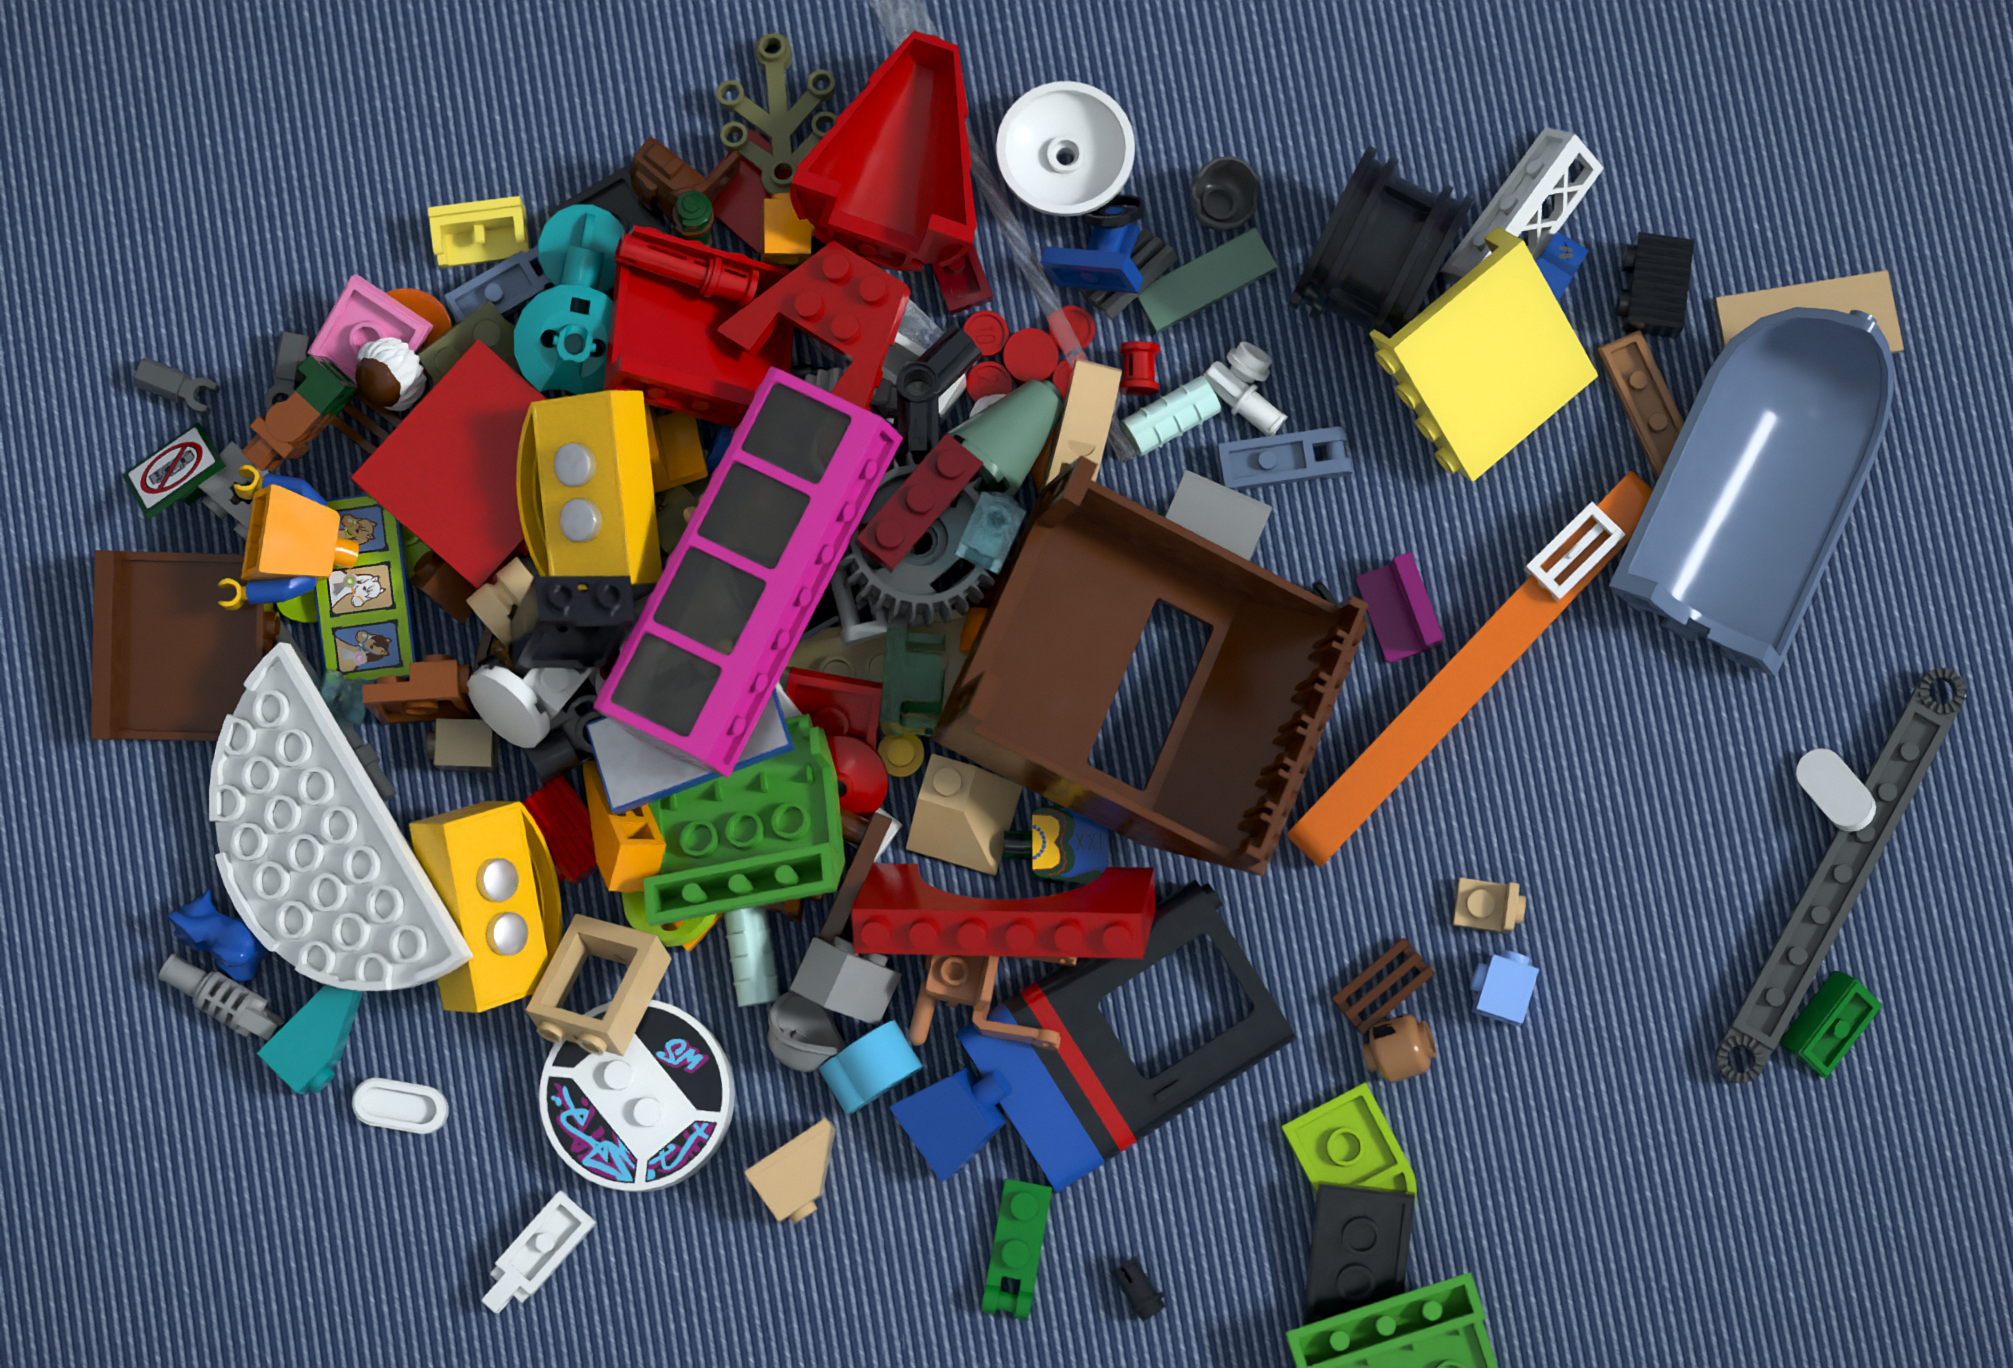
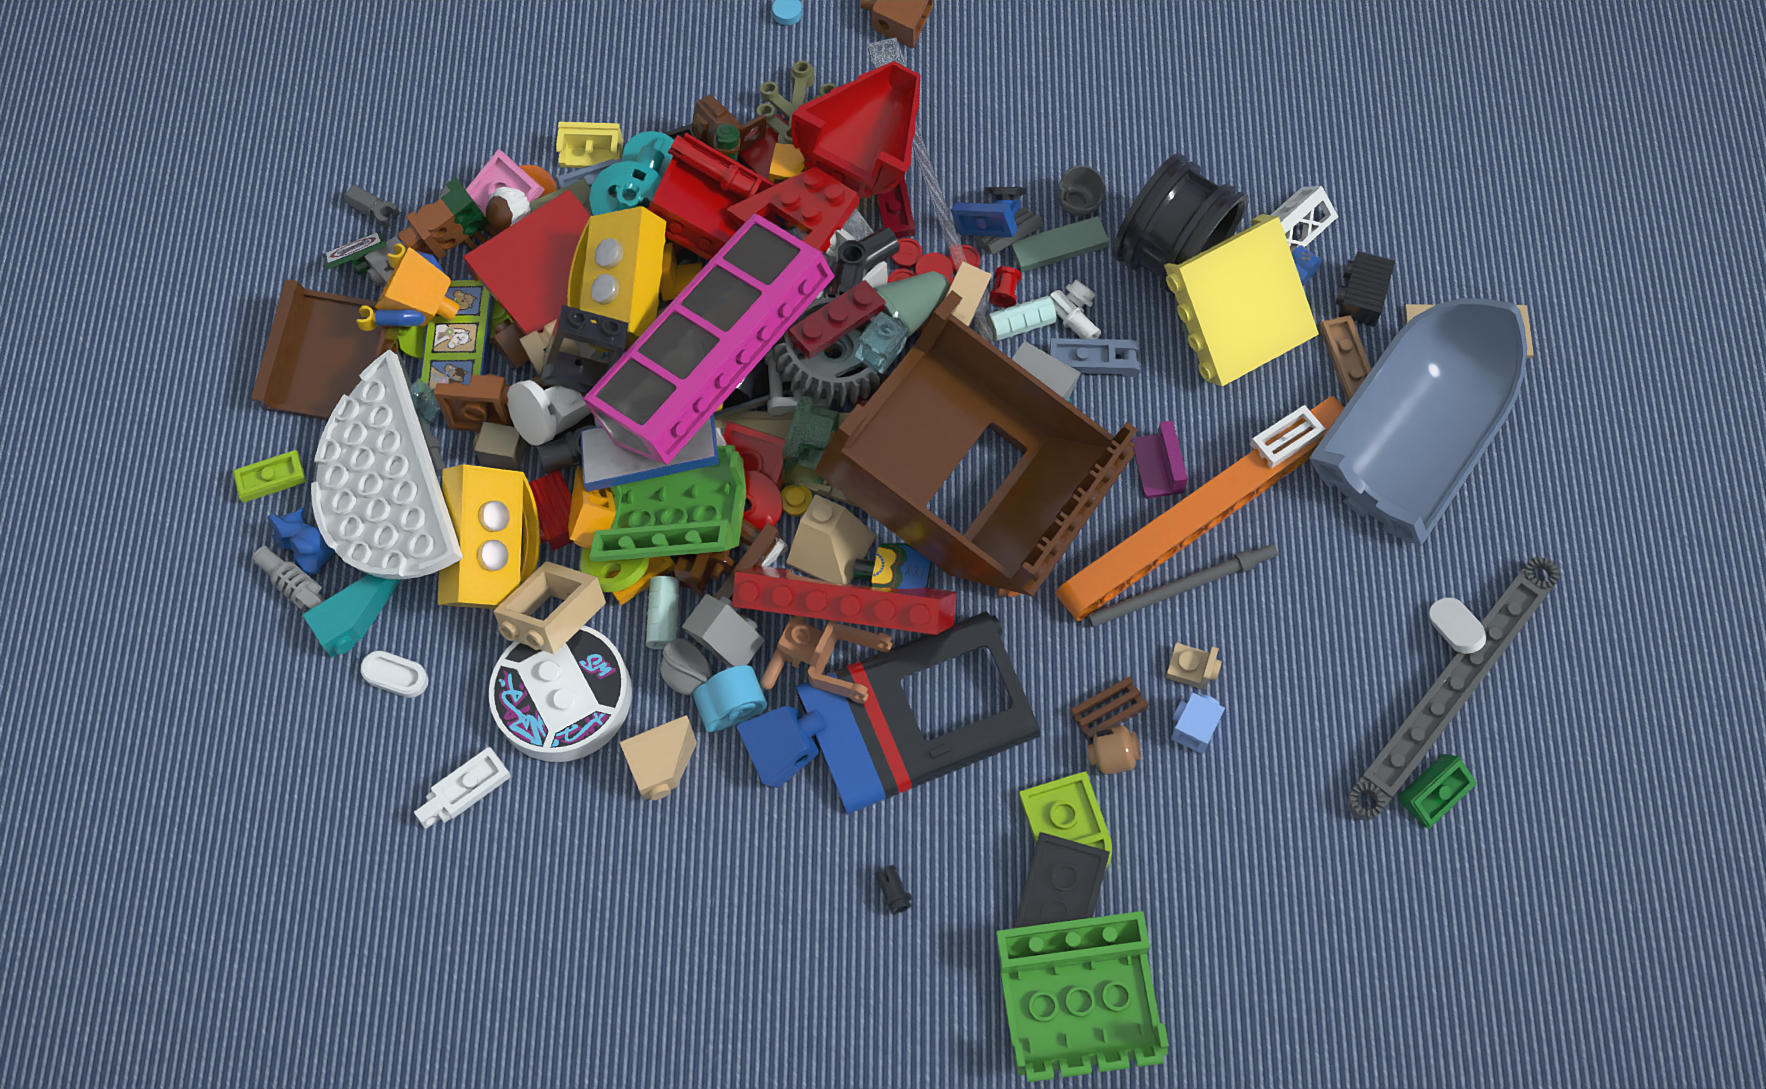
camera: 10 degrees right, 15 degrees down
(146, 845) = (269, 476): none -> lime plate
(1017, 1247) = (810, 845): green plate -> none
(1071, 121) = (984, 137): white dish -> none
(1534, 741) = (1242, 562): none -> dark grey bar

